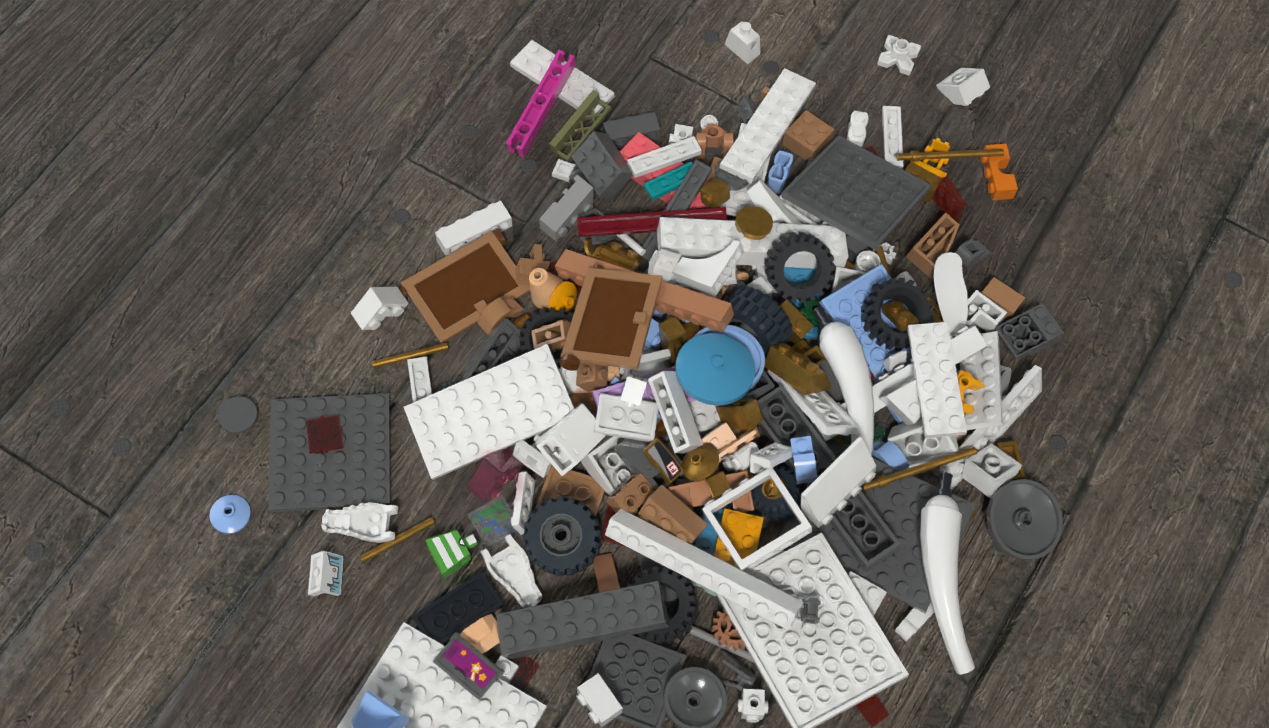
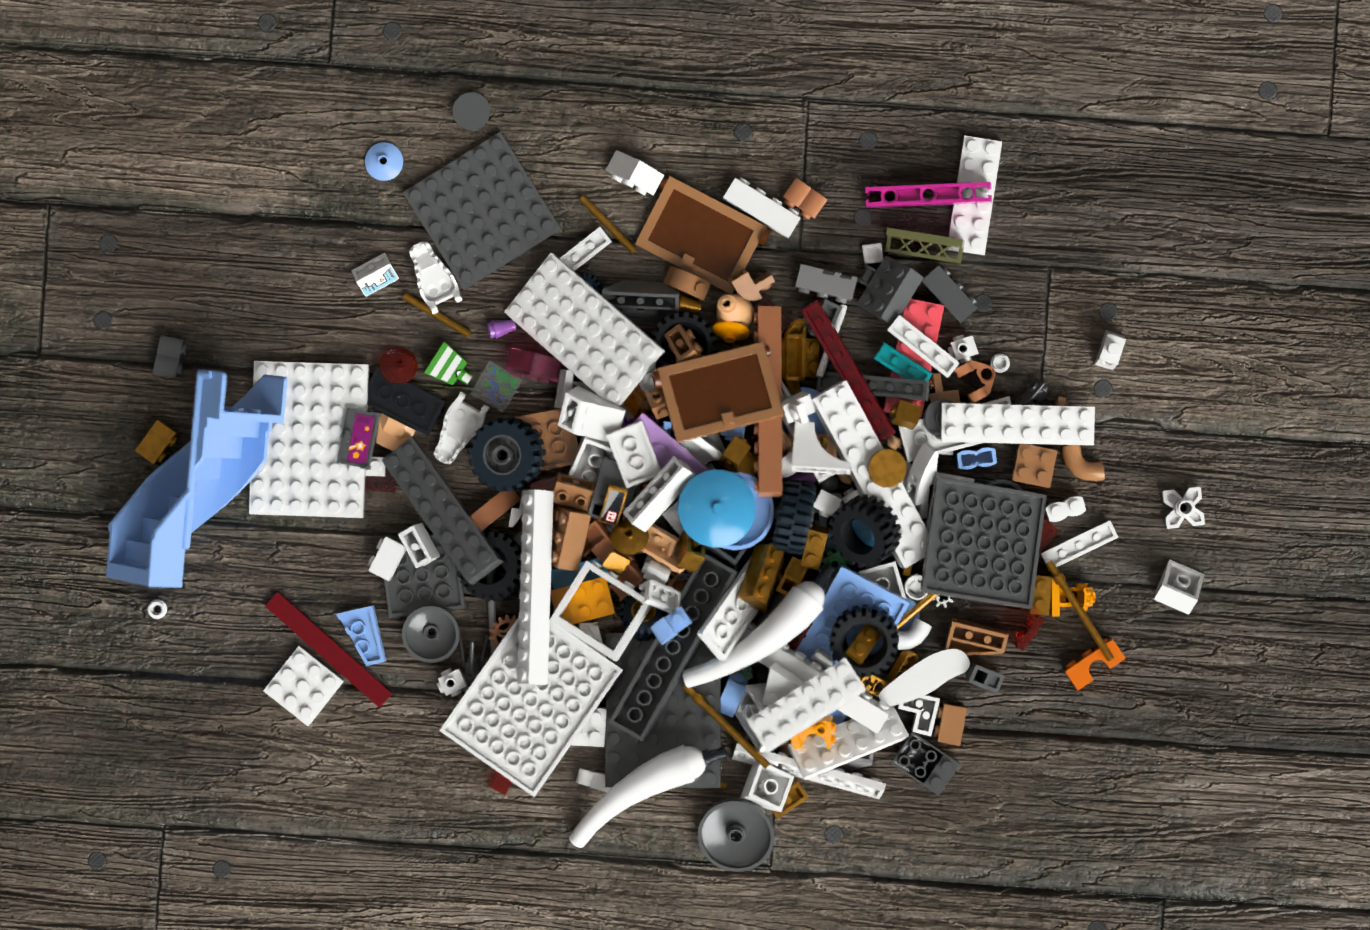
camera: 65 degrees right, 25 degrees up
(324, 434) = (491, 198): clear red piece -> none
(422, 597) = (395, 373): none -> clear red dish
(443, 489) = (500, 327): none -> medium lavender cone
(486, 192) = (805, 199): none -> nougat brick
(522, 501) = (522, 402): white plate -> none
(603, 661) = (419, 545): none -> white brick
(622, 561) = (516, 514): none -> white slope
(634, 390) = (659, 449): white slope -> none
(810, 611) = (545, 693): dark grey bush -> none
(828, 106) = (1079, 466): none -> medium nougat cylinder
(838, 483) = (660, 667): white slope -> none

